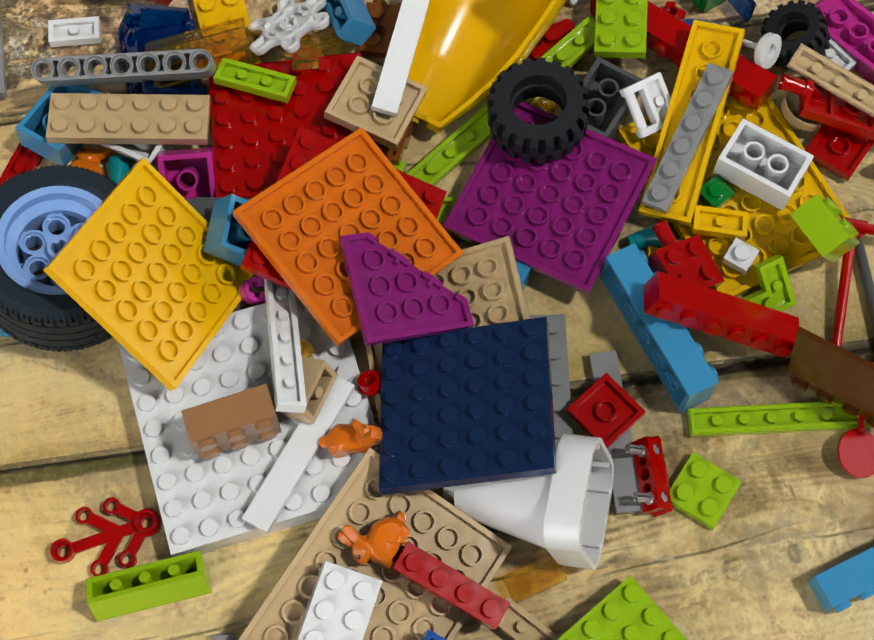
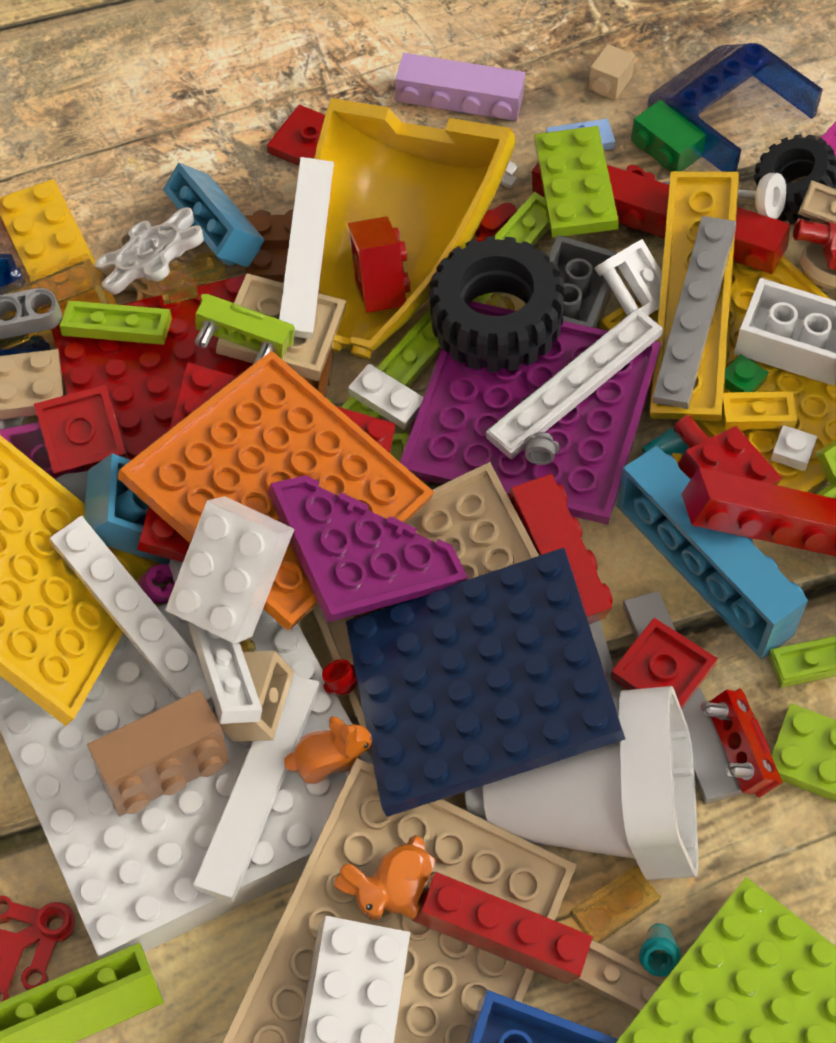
camera: 10 degrees left, 10 degrees down
(214, 165) = (79, 429): none -> red plate
(229, 311) = (131, 609): none -> white plate
(300, 298) = (229, 569): none -> white brick
(344, 102) = (242, 327): none -> lime piece
(445, 167) = (386, 396): none -> white plate
(458, 61) = (379, 264): none -> red brick
(547, 300) = (550, 526): none -> red brick
(548, 230) = (540, 448): none -> light grey plate
(558, 617) = (659, 951): none -> teal cone
(585, 181) = (574, 382): none -> white tile

